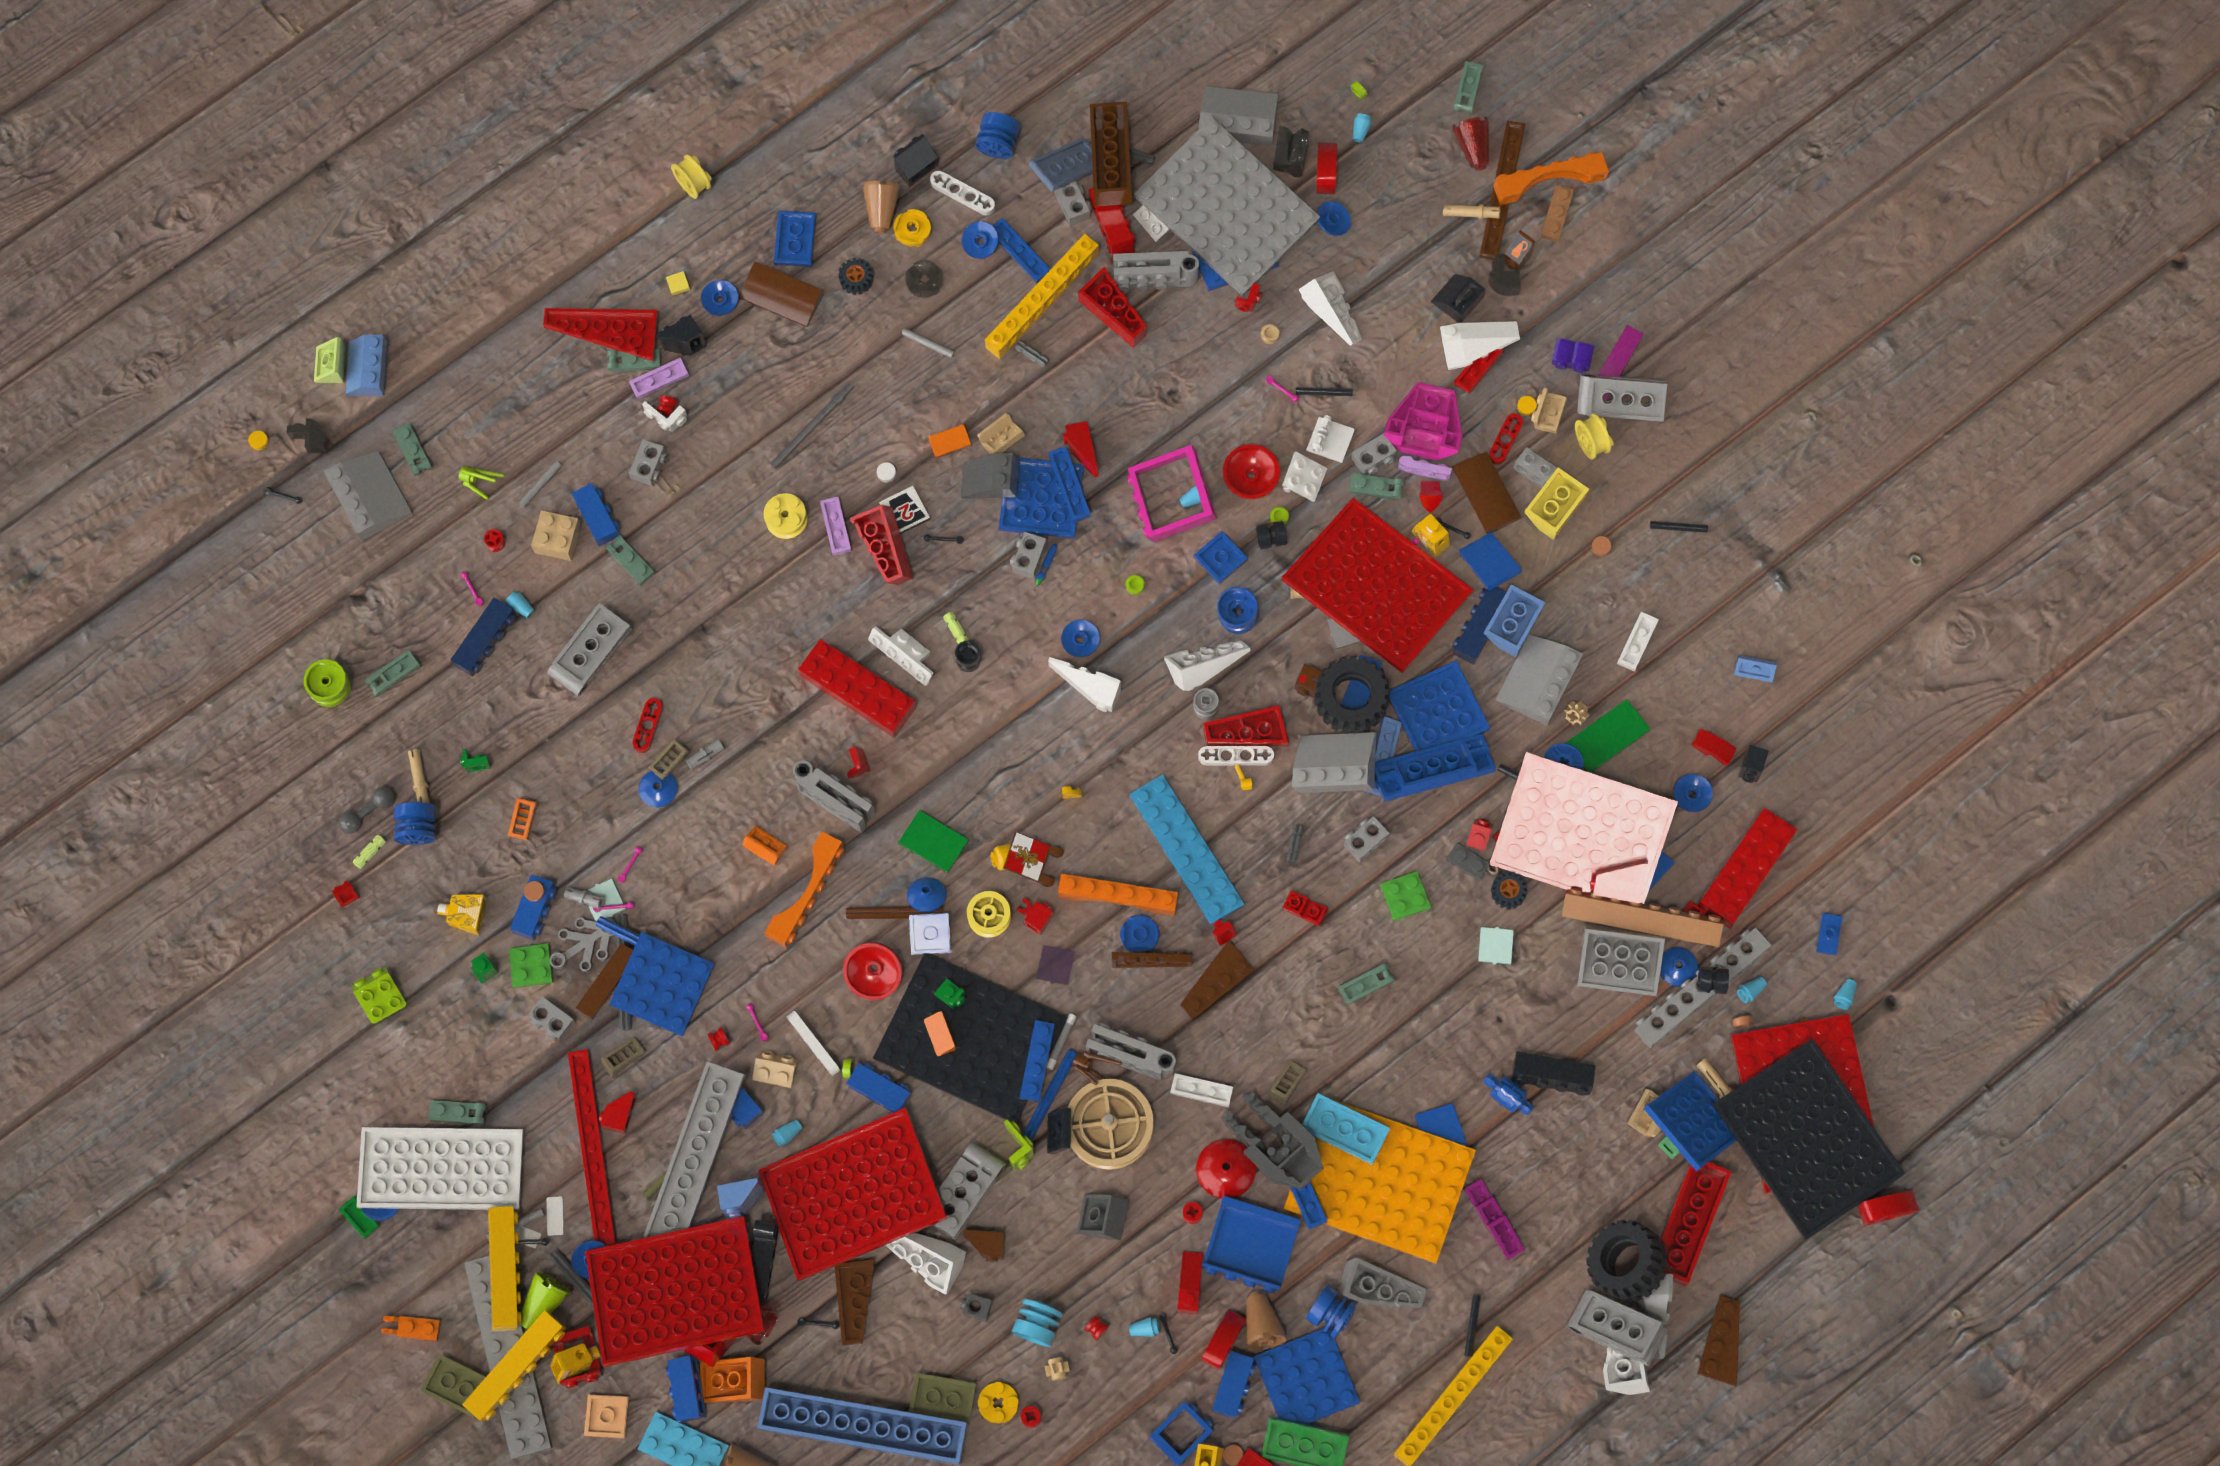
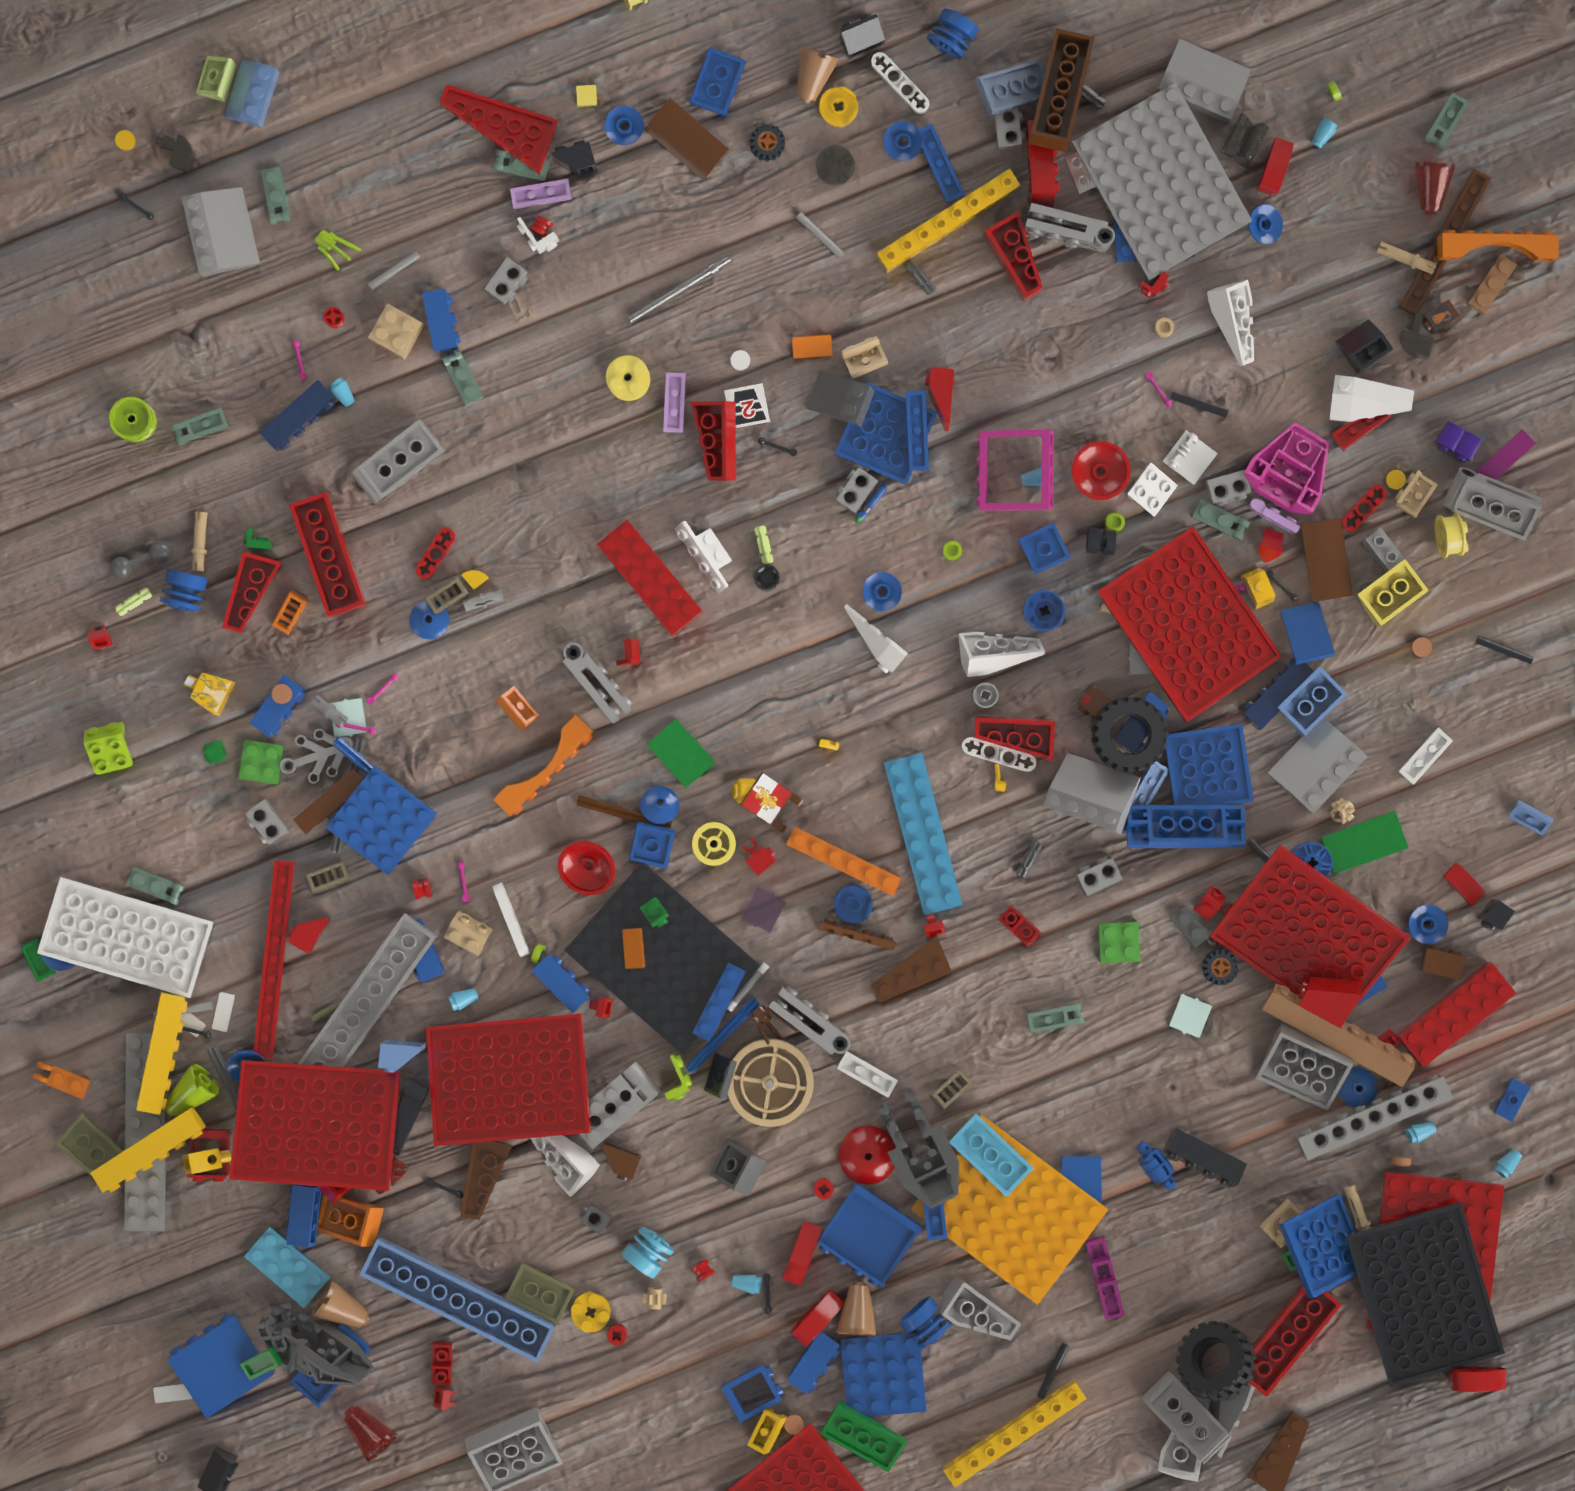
camera: 15 degrees right, 15 degrees up
(478, 802) = (250, 585): none -> red wedge
(545, 753) = (328, 554): none -> red brick
(606, 1416) = (223, 1216): light nougat tile -> none
(691, 737) = (475, 578): none -> yellow tile
(925, 1101) = (602, 1006): none -> red tile
(1713, 980) = (1384, 1118): black wheel -> none
(1718, 824) = (1442, 963): none -> reddish brown brick

